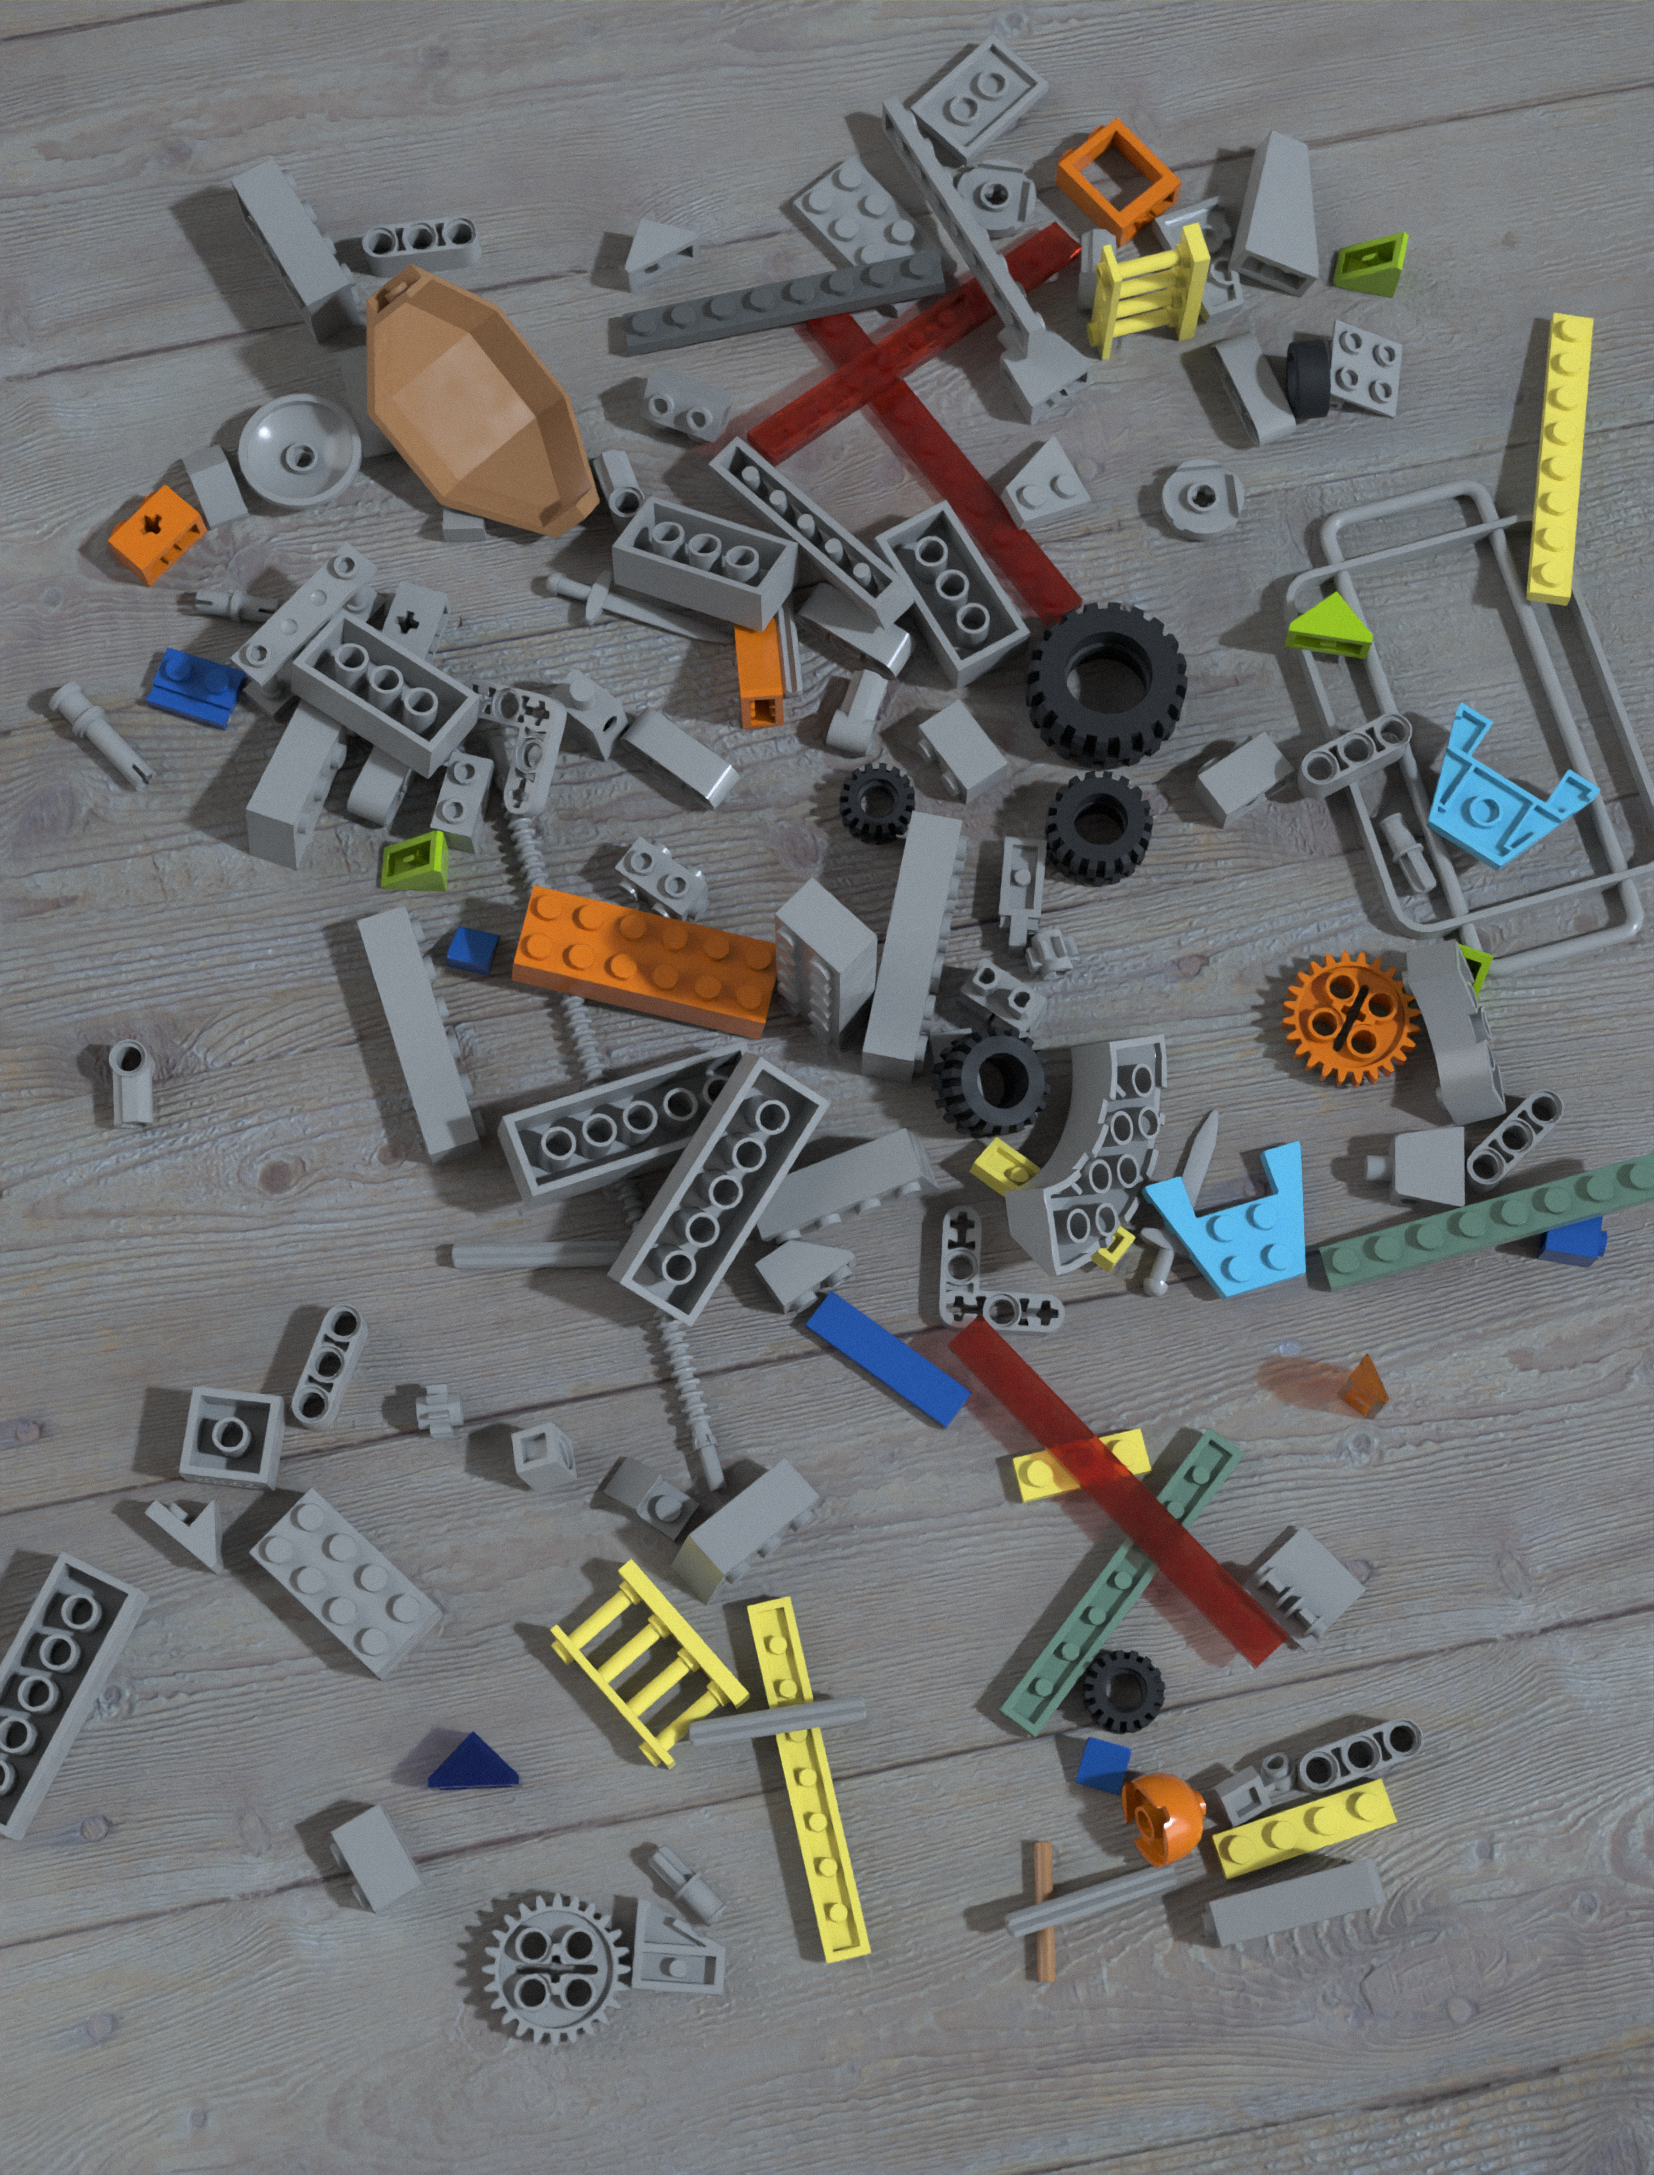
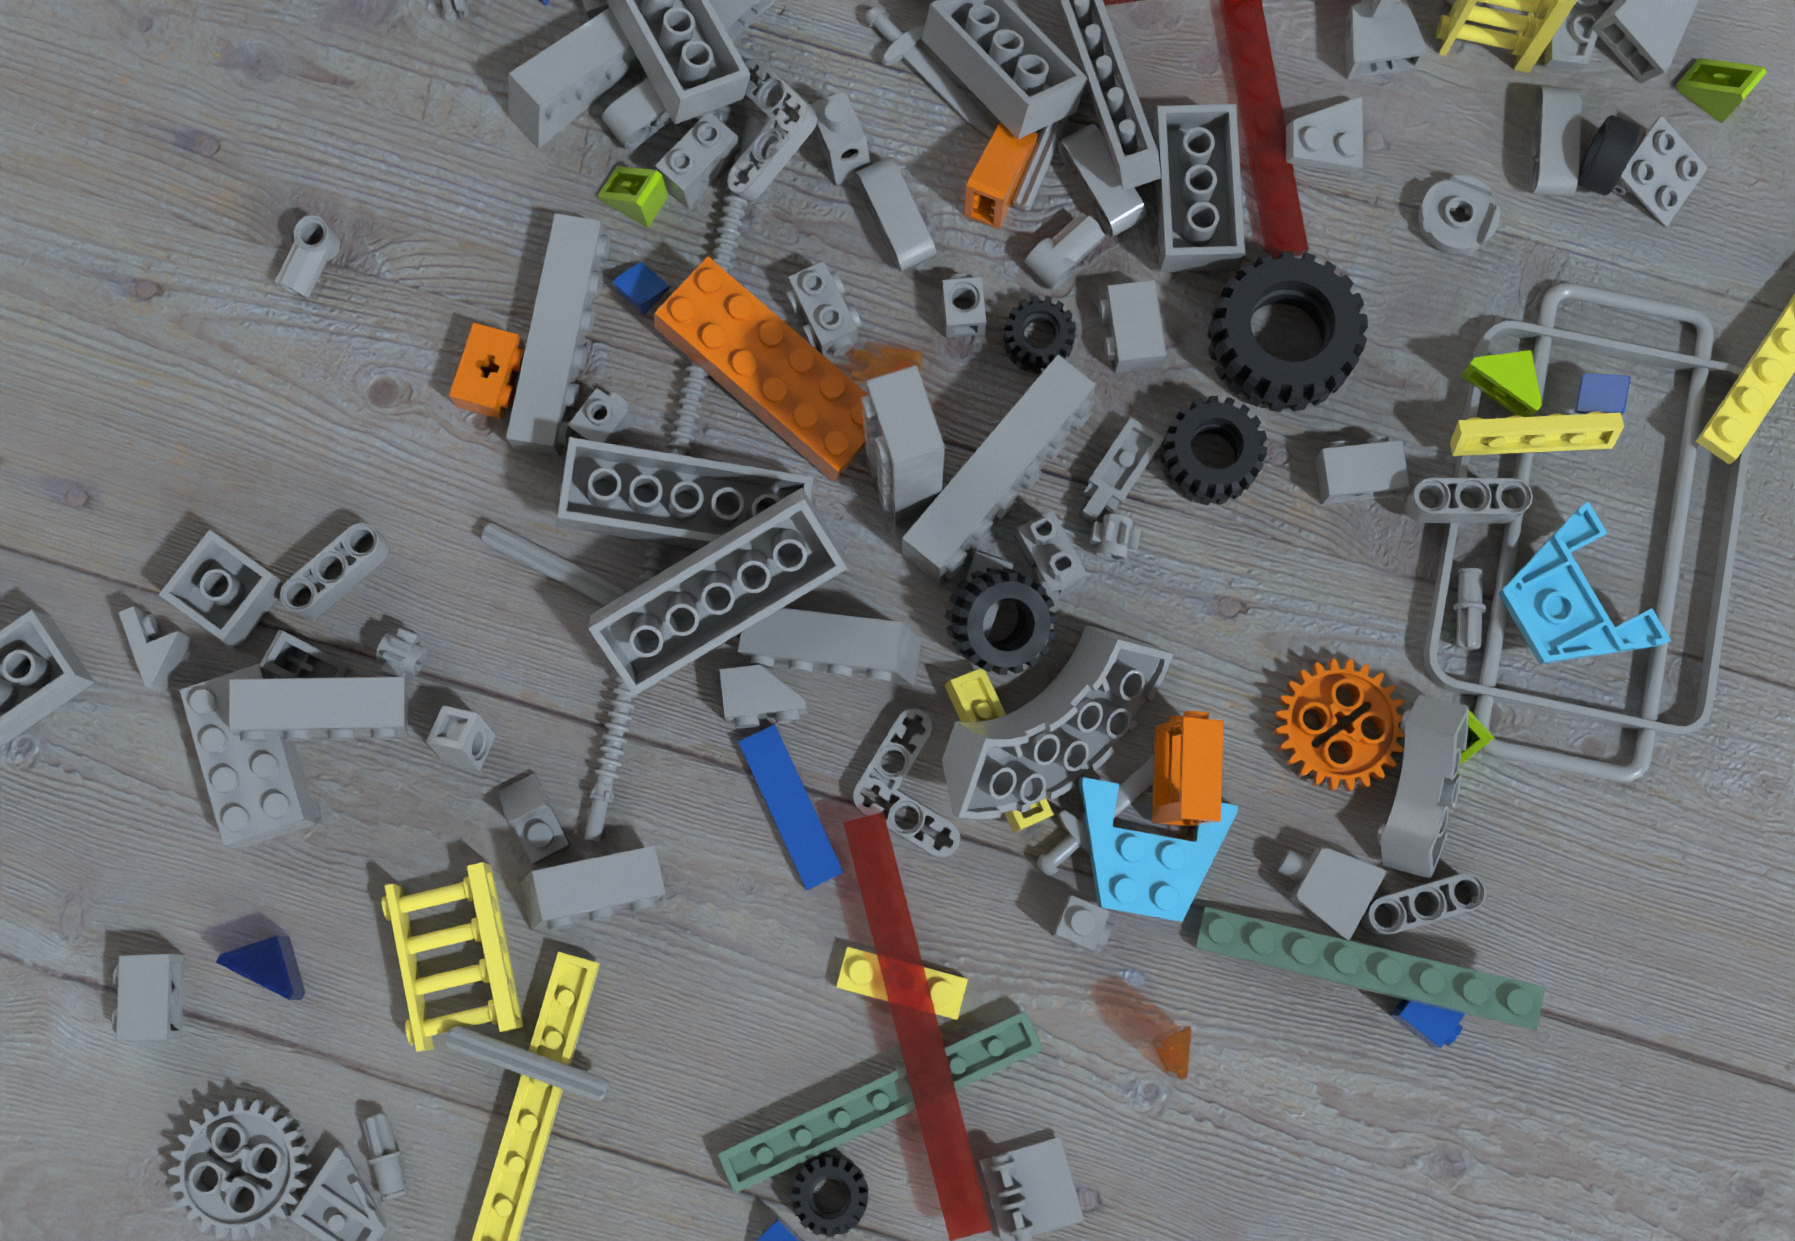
camera: 30 degrees right, 5 degrees up
(352, 1471) = (296, 659): none -> light grey slope
(359, 1082) = (483, 351): none -> orange brick
(400, 1493) = (318, 708): none -> light grey wedge
(507, 1090) = (602, 418): none -> light grey brick
(757, 905) = (891, 361): none -> clear orange plate
(797, 829) = (963, 322): none -> light grey brick
(1217, 1321) = (1083, 924): none -> light grey brick
(1236, 1130) = (1187, 770): none -> orange window
(1381, 665) = (1536, 434): none -> light yellow plate
(1422, 600) = (1602, 393): none -> blue slope

